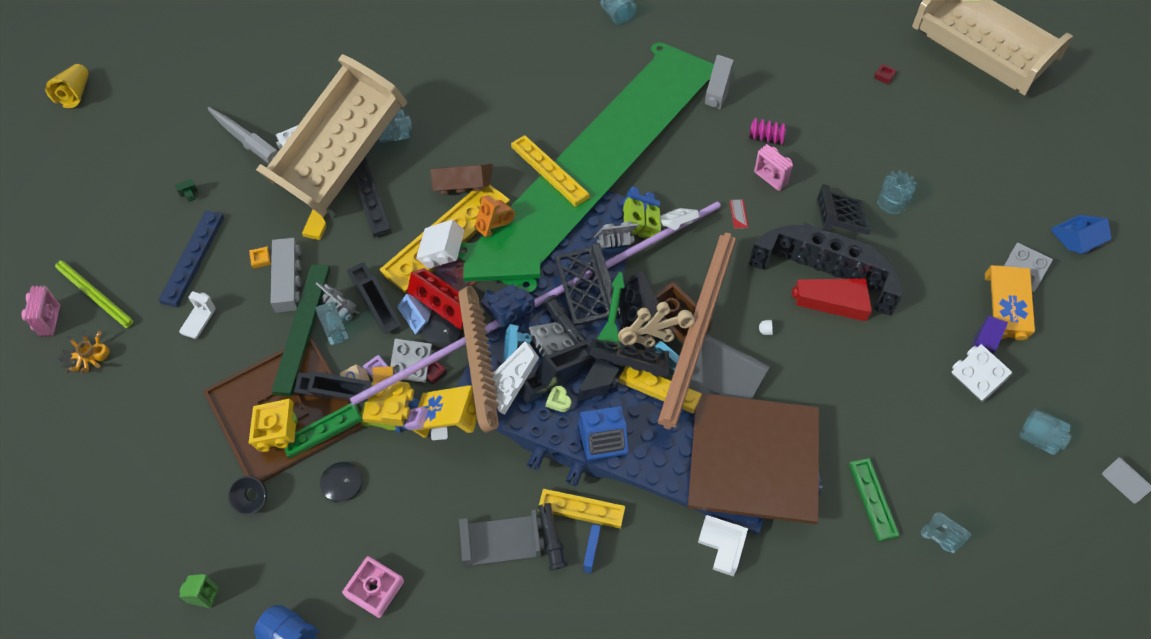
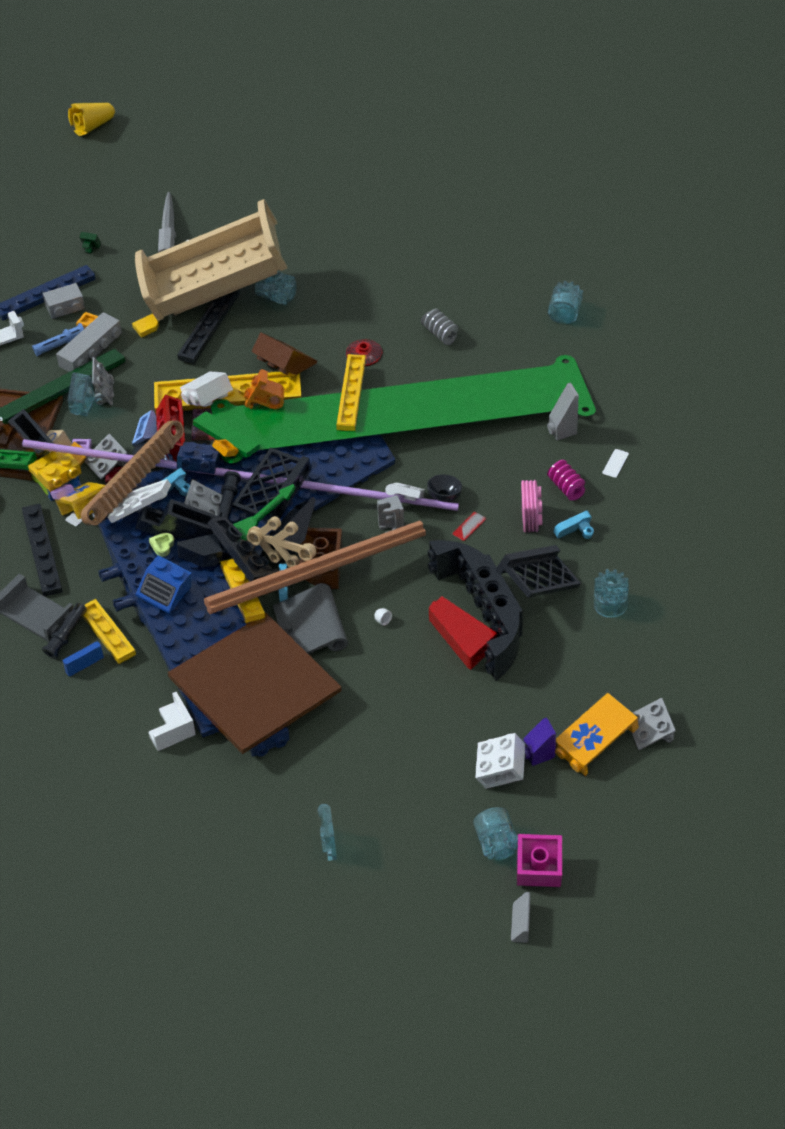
camera: 45 degrees right, 10 degrees down
(220, 253) = (63, 300): none -> light grey brick
(259, 282) = (58, 340): none -> medium blue pin
(373, 297) = (127, 397): black slope -> none
(444, 481) = (42, 550): none -> black plate
(510, 132) = (366, 347): none -> dish
(520, 281) = (225, 448): none -> light orange tile
(549, 77) = (440, 326): none -> light grey piece
(621, 234) = (334, 463): light grey hinge -> none
(644, 211) = (386, 463): lime hips -> none
(691, 244) = (390, 513): none -> light grey hinge
(697, 192) = (444, 485): none -> black piece
(776, 98) = (615, 463): none -> white sticker
(810, 158) = (572, 524): none -> medium azure piece
(874, 500) = (313, 782): green tile -> none
(885, 74) = (738, 505): dark red tile -> none
(1083, 233) = (737, 737): blue slope -> none
(1095, 427) = (539, 860): none -> dark pink slope

